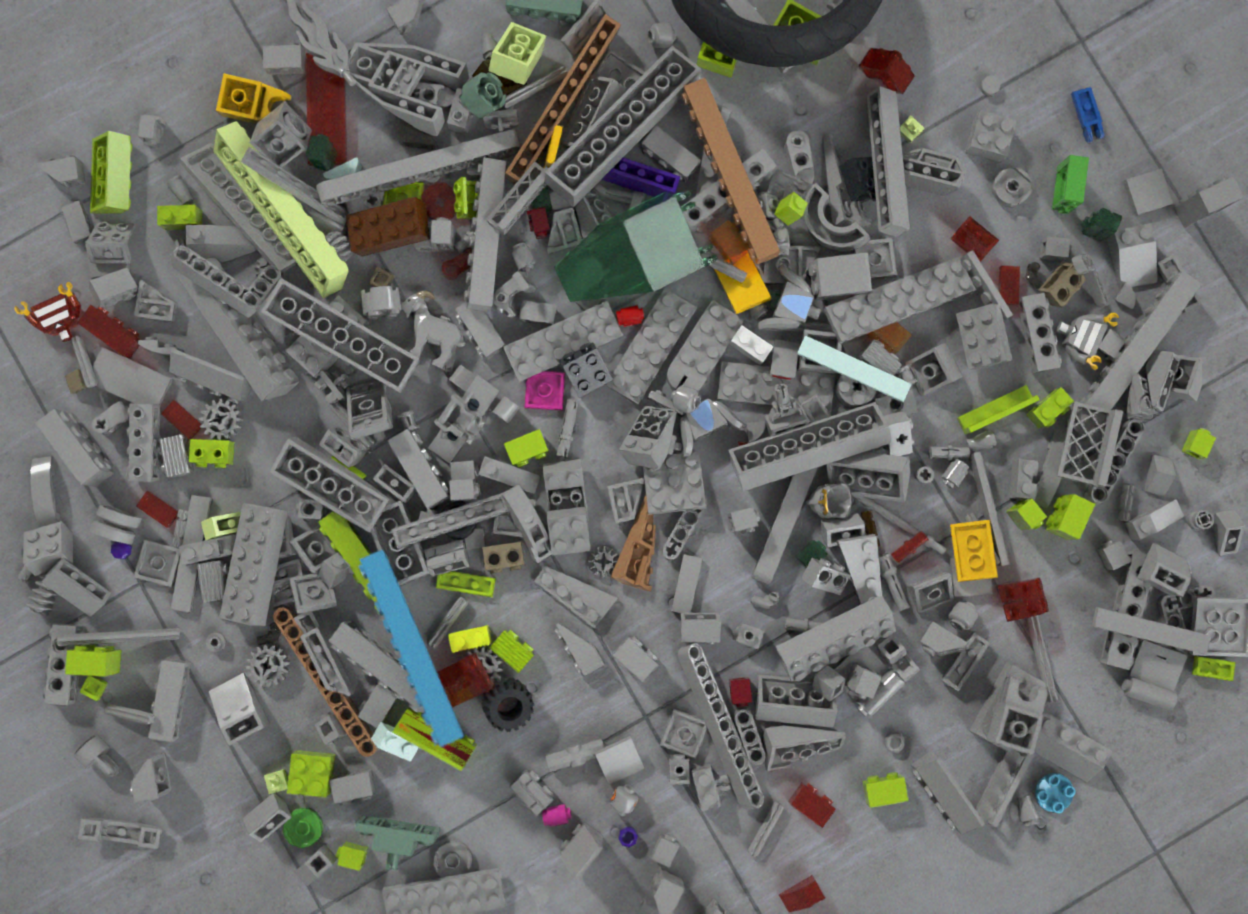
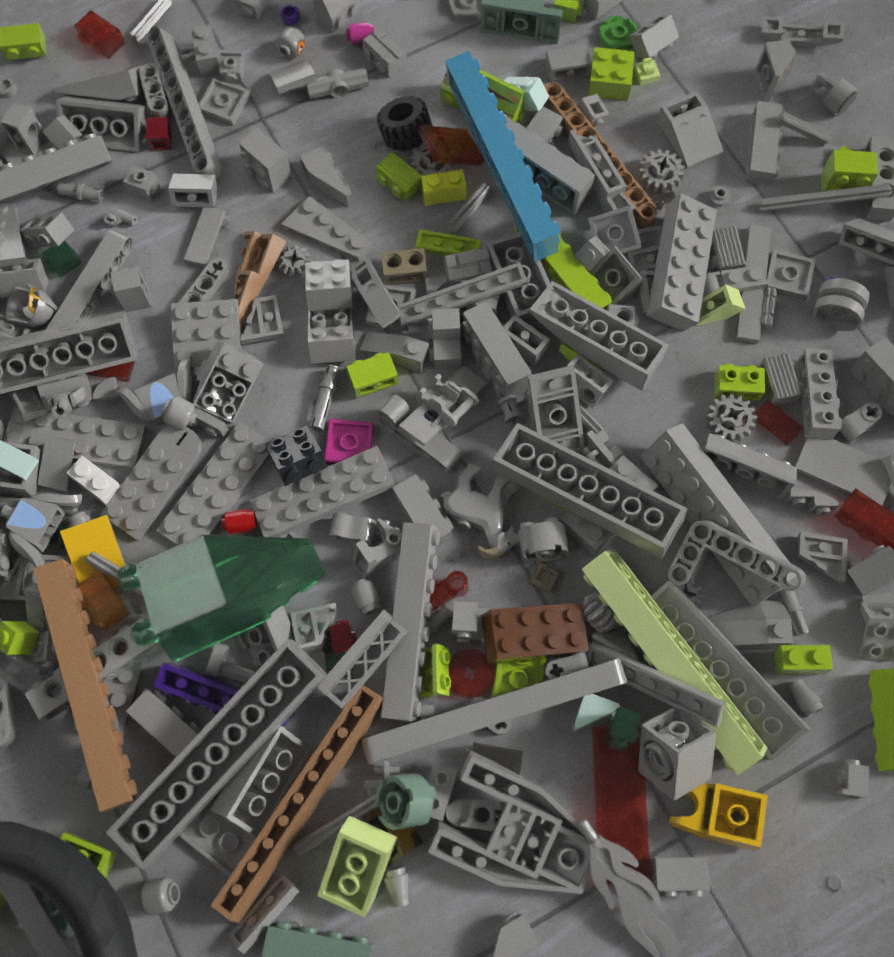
camera: 175 degrees left, 15 degrees down
(157, 509) = (796, 328): clear red tile -> none
(553, 146) = (317, 719): yellow tile -> none

